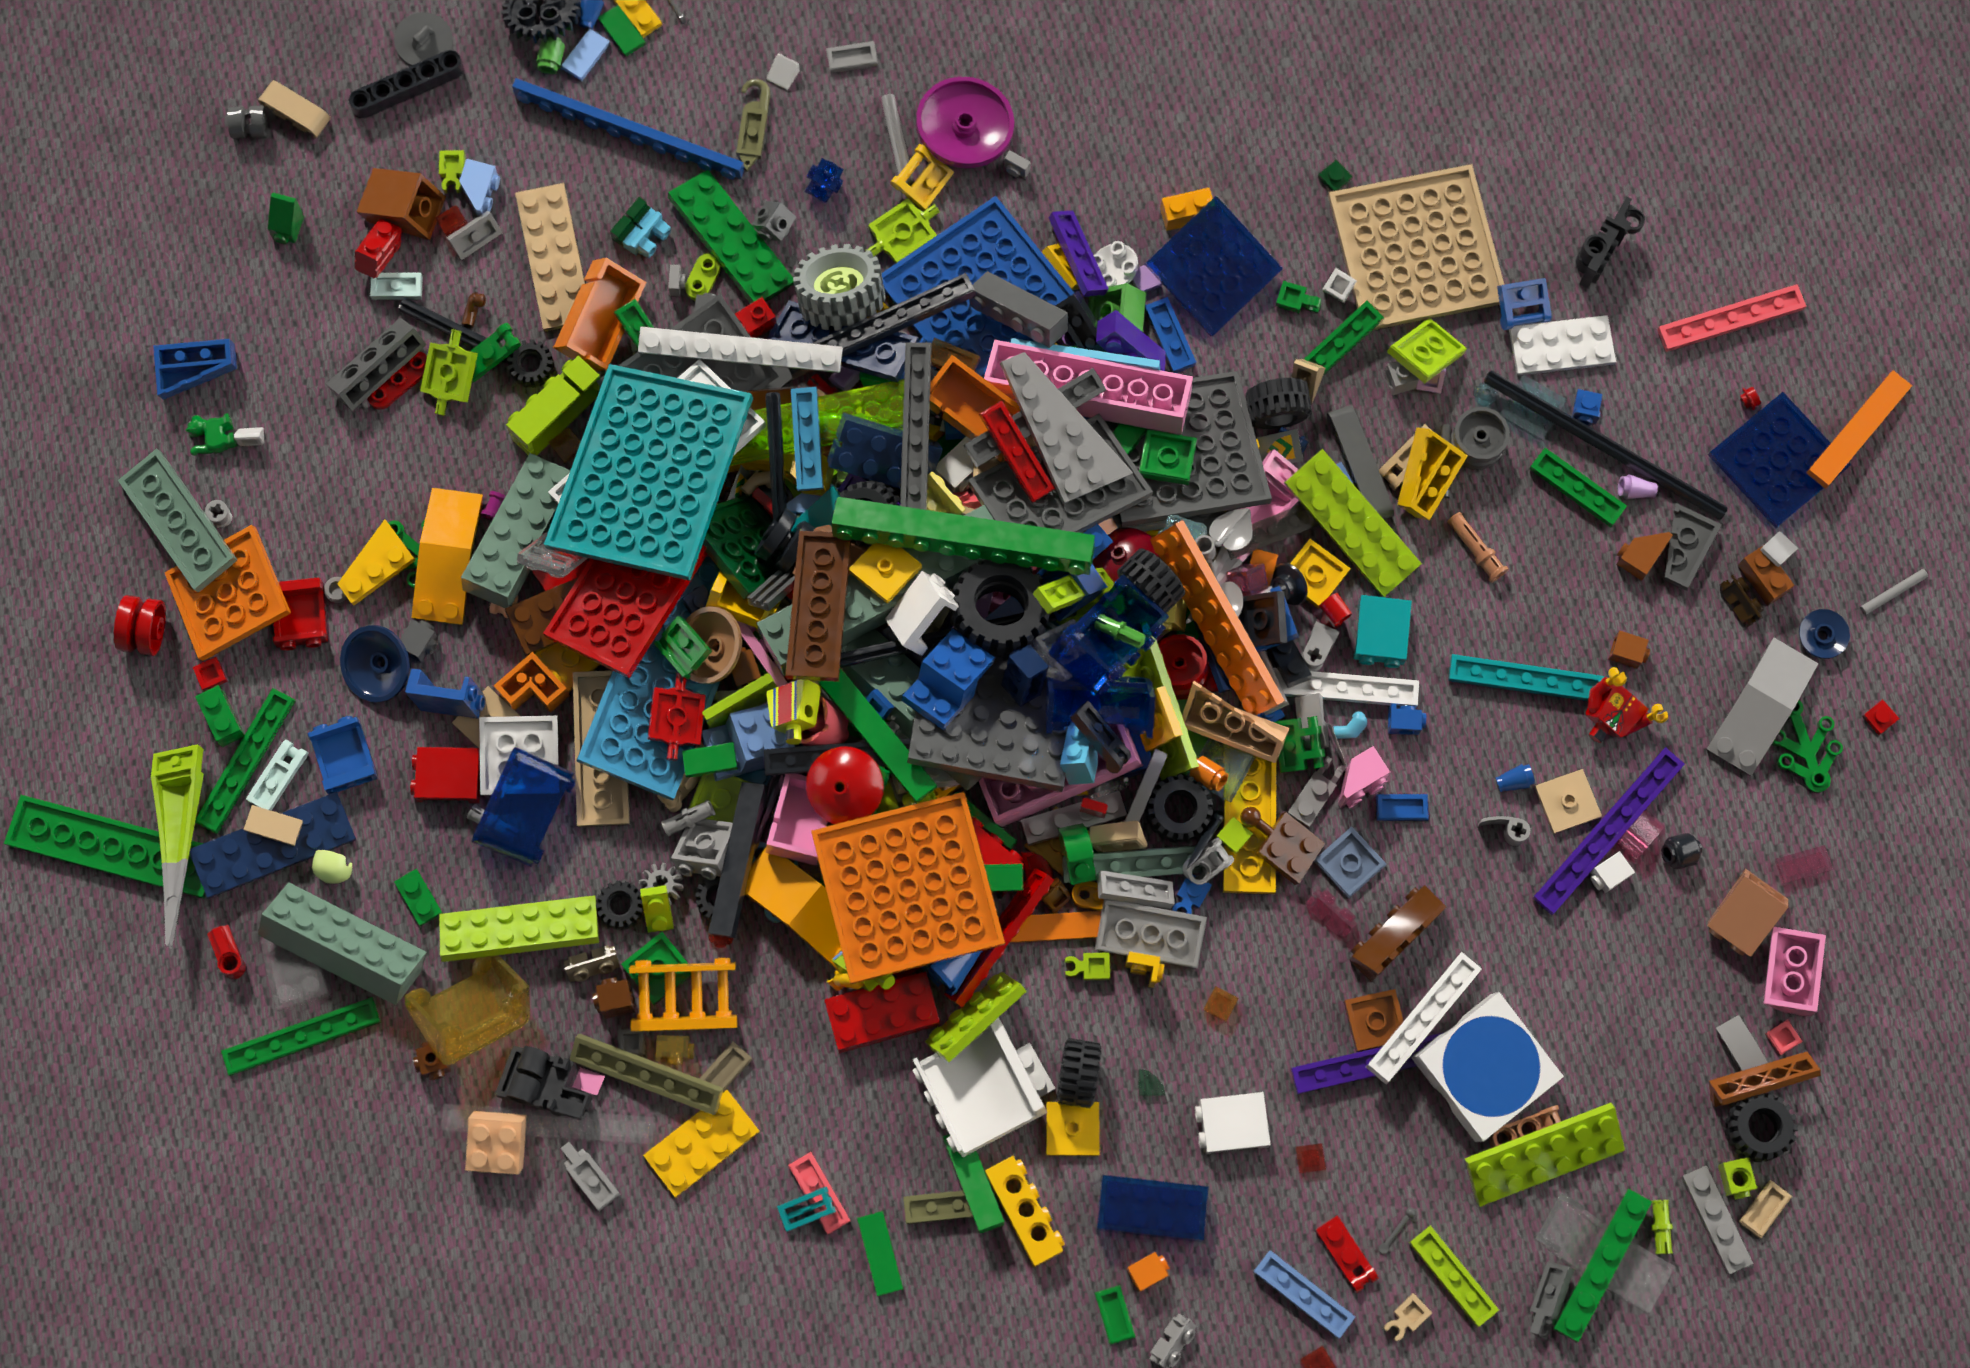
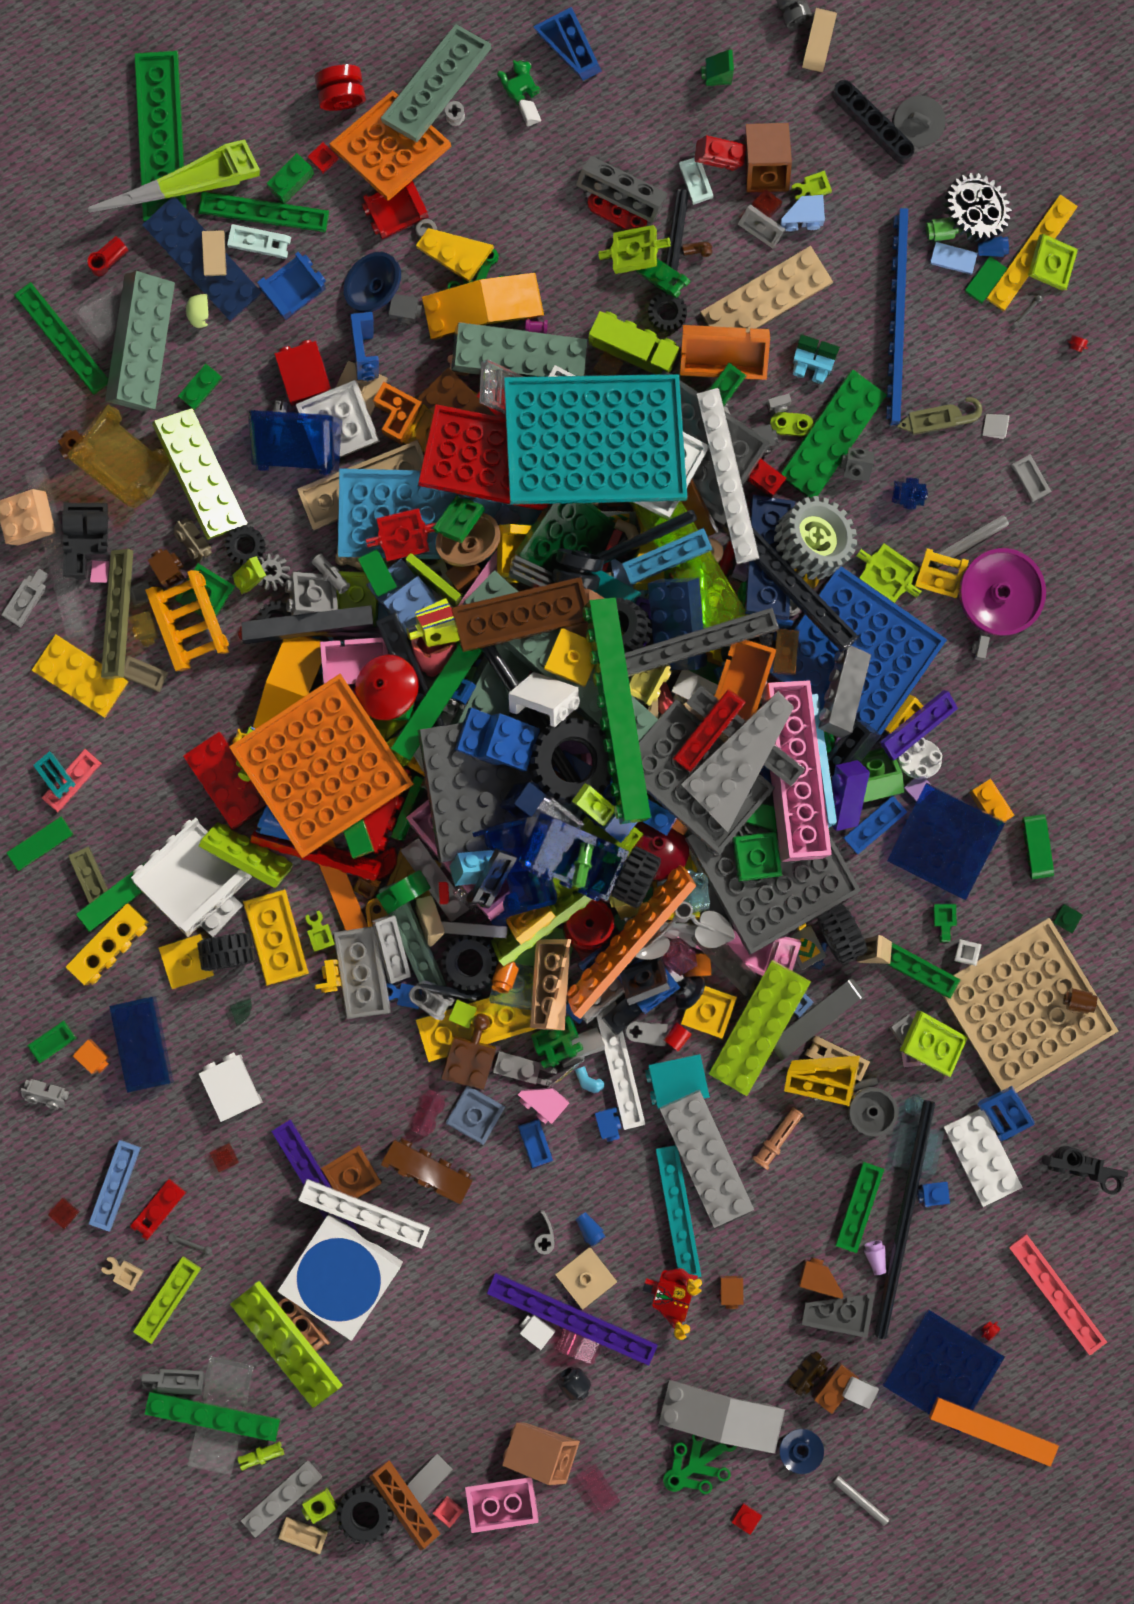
camera: 75 degrees right, 10 degrees up
(1078, 1015) = (276, 937): none -> yellow tile
(1220, 1004) = (323, 1046): clear orange plate -> none
(1250, 178) = (1039, 849): none -> green beam
(1429, 188) = (1080, 1001): none -> reddish brown brick
(1476, 627) = (706, 1158): none -> light grey plate

